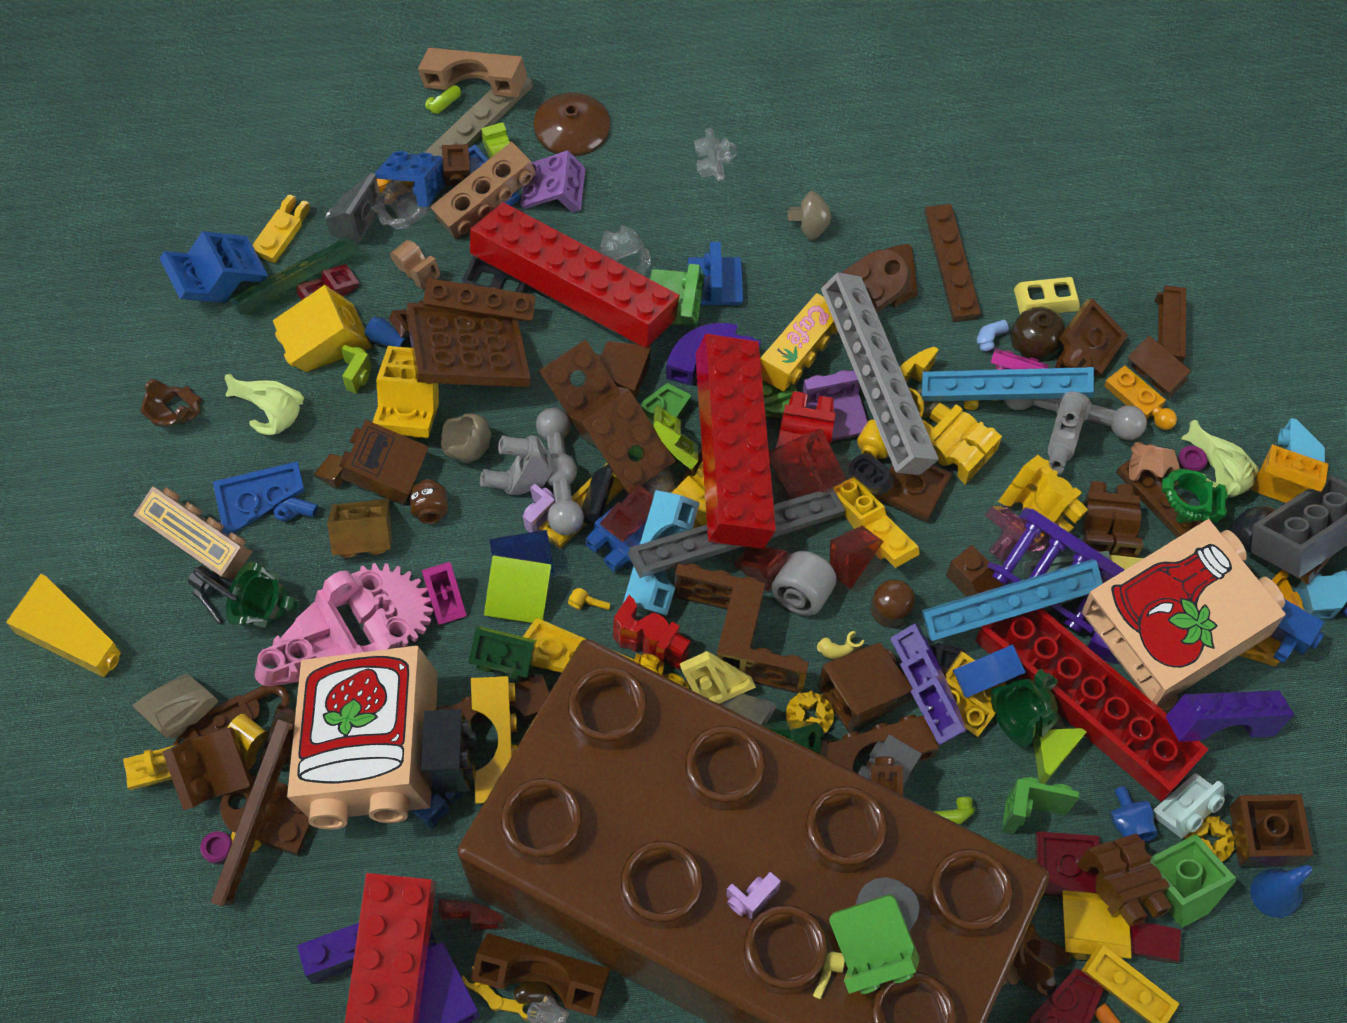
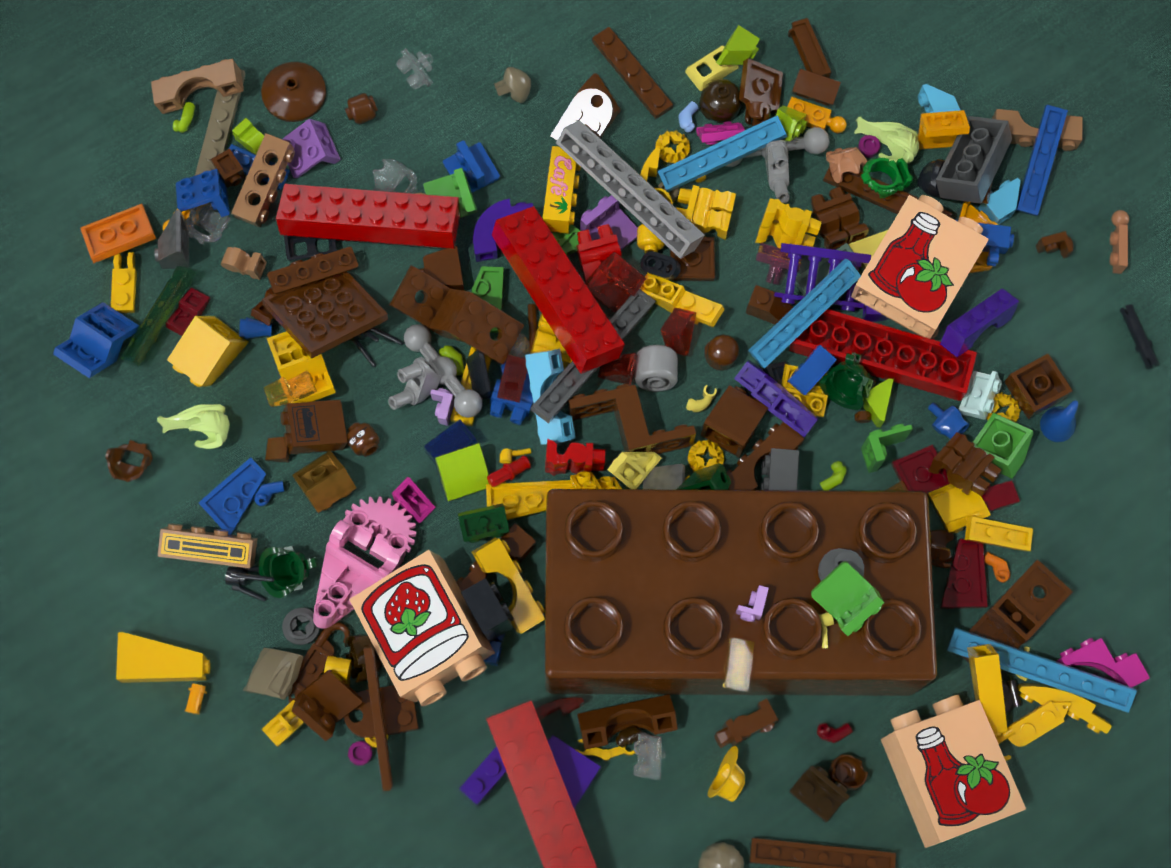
camera: 30 degrees left, 10 degrees up
(78, 690) = (195, 698): none -> light orange pin
(230, 662) = (290, 624): none -> dark grey gear
(305, 177) = (117, 233): none -> orange tile
(358, 369) = (253, 368): lime bracket -> none
(378, 410) = (289, 391): none -> clear yellow slope
(466, 438) = (362, 379): dark tan hair -> none
(498, 393) = (362, 336): none -> black plant
(570, 615) = (508, 471): none -> red axle
(583, 464) = (453, 354): none -> lime arm
(631, 168) = (361, 108): none -> reddish brown head
(669, 430) = (515, 309): lime slope -> none
(694, 960) = (738, 664): none -> clear yellow slope
(887, 773) = (786, 478): reddish brown bracket -> none
(945, 358) = (668, 154): none -> yellow gear
(1027, 760) = (862, 417): none -> reddish brown piece
(1087, 283) = (739, 48): none -> lime slope
(1109, 389) = (792, 122): none -> lime slope

